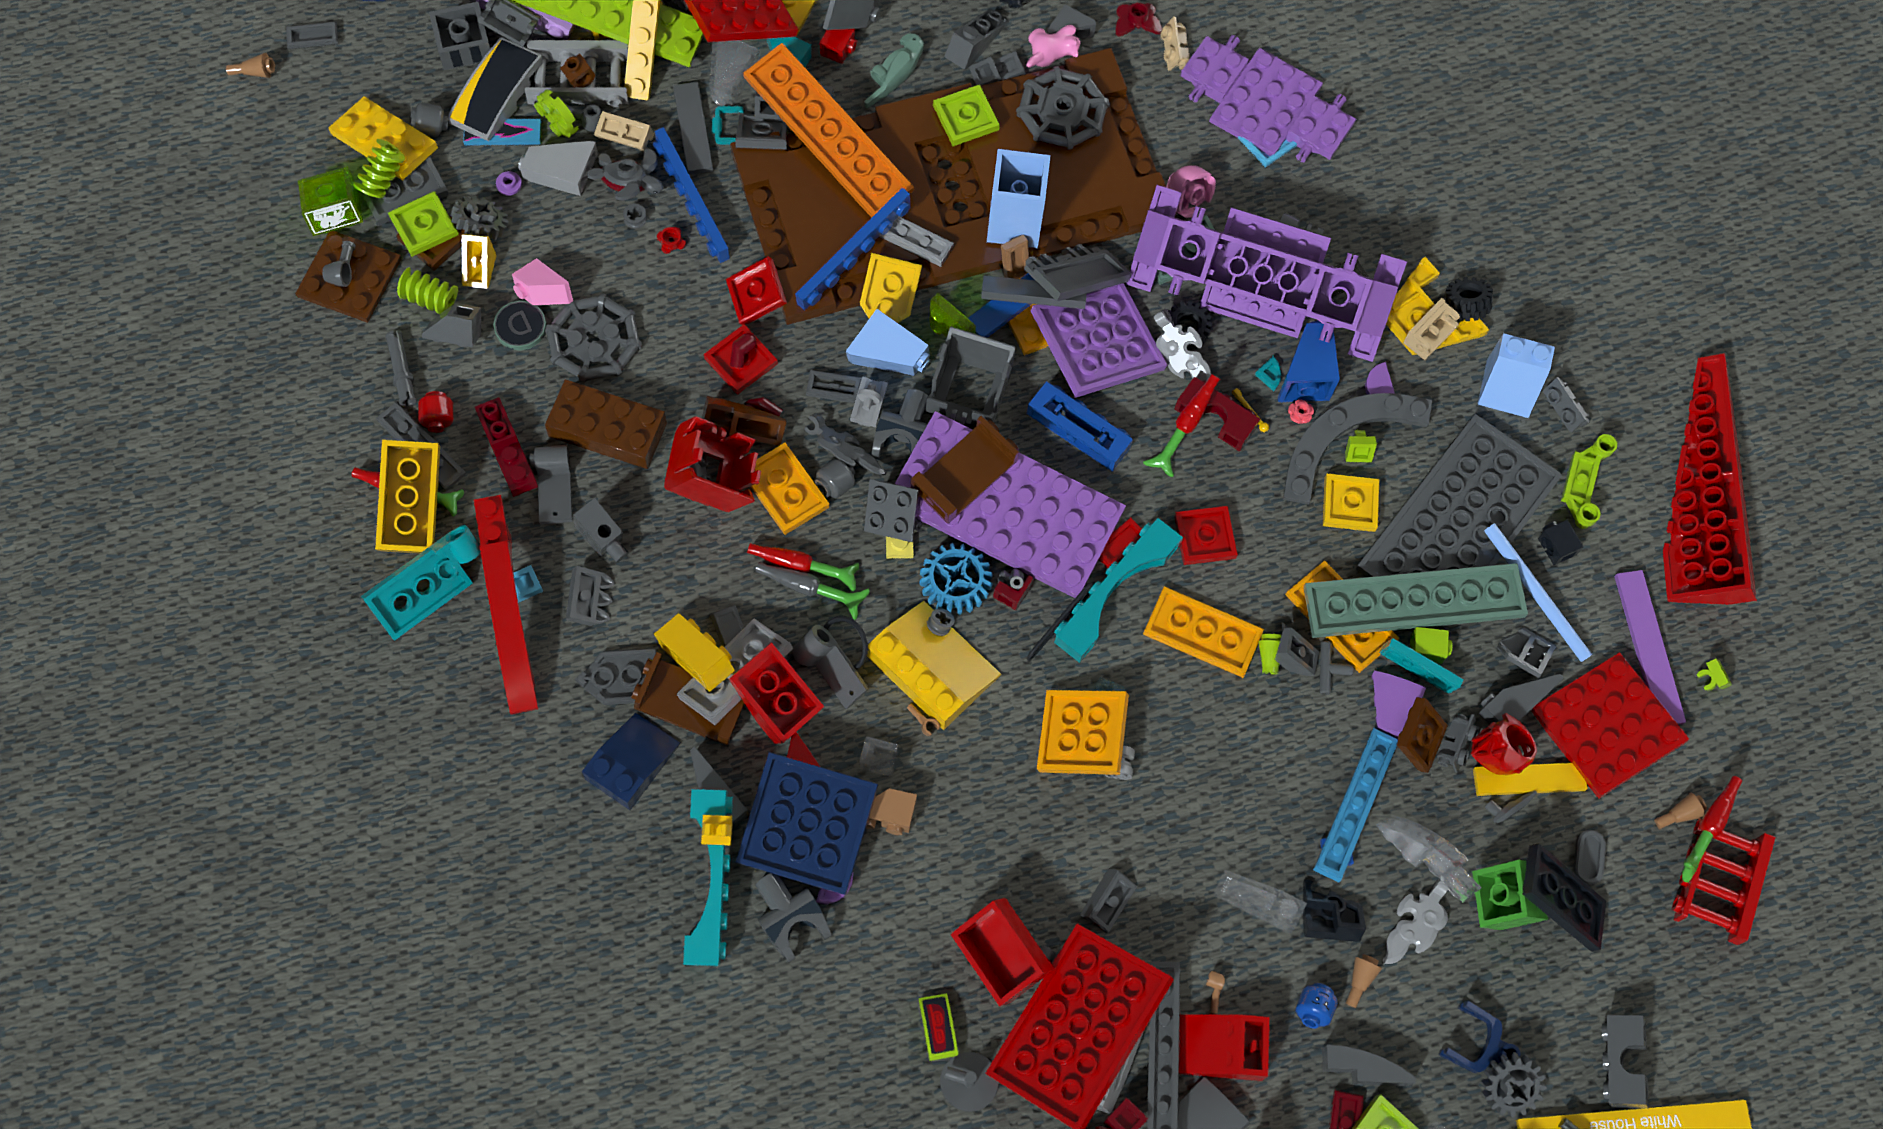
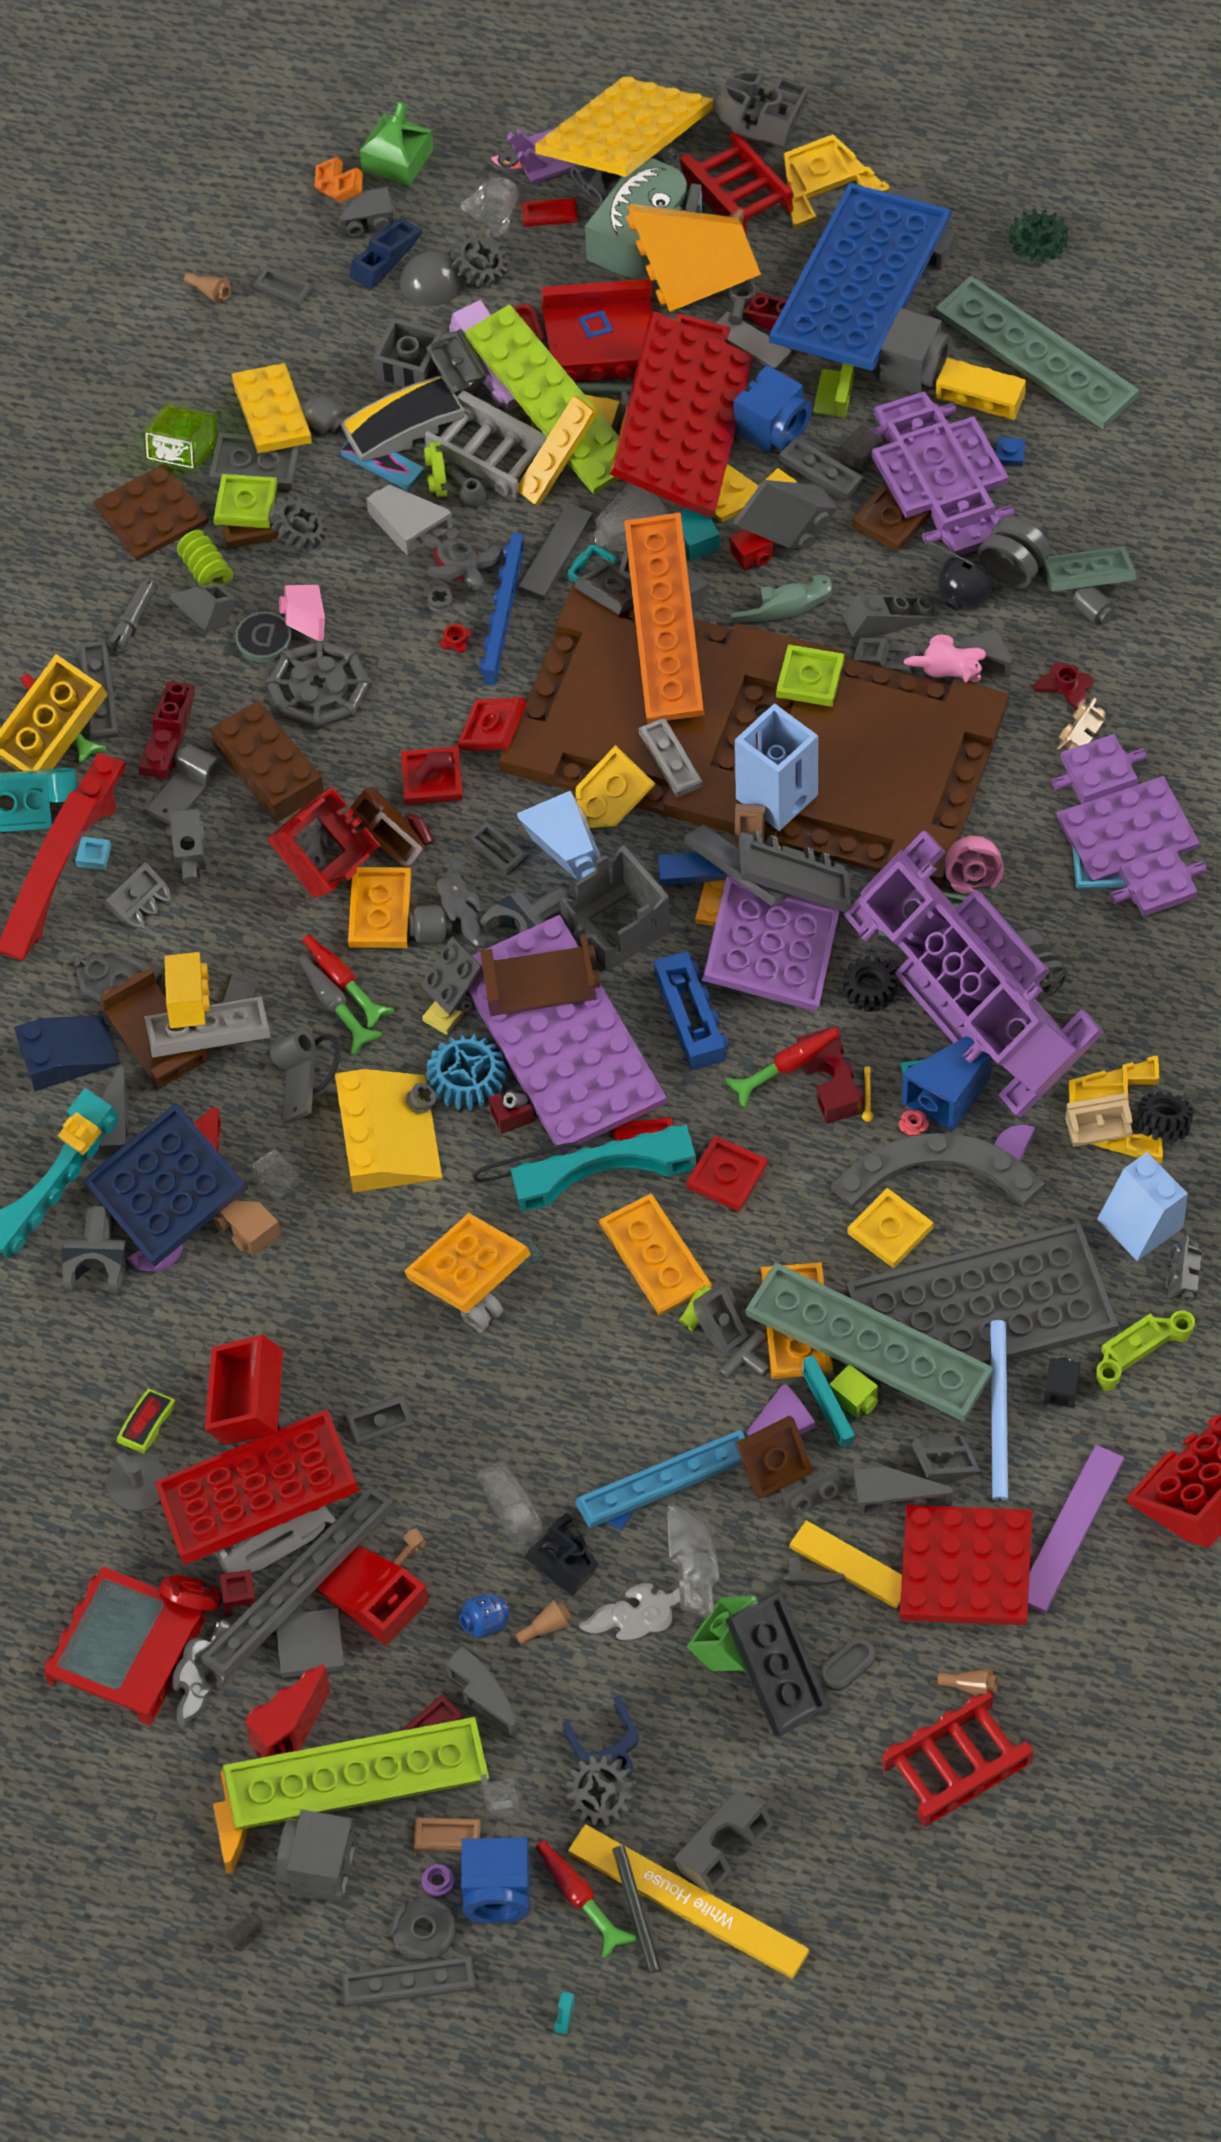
camera: 45 degrees right, 10 degrees down
(339, 272) = (141, 502): dark grey bar -> none
(381, 170) = (240, 431): lime piece -> none
(435, 411) = (132, 667): red head -> none
(477, 260) = (268, 560): yellow slope -> none
(508, 189) = (351, 514): medium lavender plate -> none
(578, 71) = (483, 441): reddish brown plate -> none
(623, 131) = (486, 518): tan hinge -> none
(775, 694) = (223, 1062): red slope -> none
(848, 254) = (601, 732): blue plate -> none
(869, 402) = (513, 875): light grey hips -> none
(923, 720) = (341, 1172): medium nougat hand -> none
(945, 315) = (638, 841): clear neon green plate -> none
(1058, 119) = (910, 733): dark grey plate -> none
(1174, 348) = (836, 991): light grey piece -> none
(1360, 447) = (940, 1185): lime tile -> none
(1498, 747) = (839, 1510): red piece -> none
(1711, 826) = (973, 1698): red piece -> none
(1717, 675) = (1113, 1589): lime tile -> none

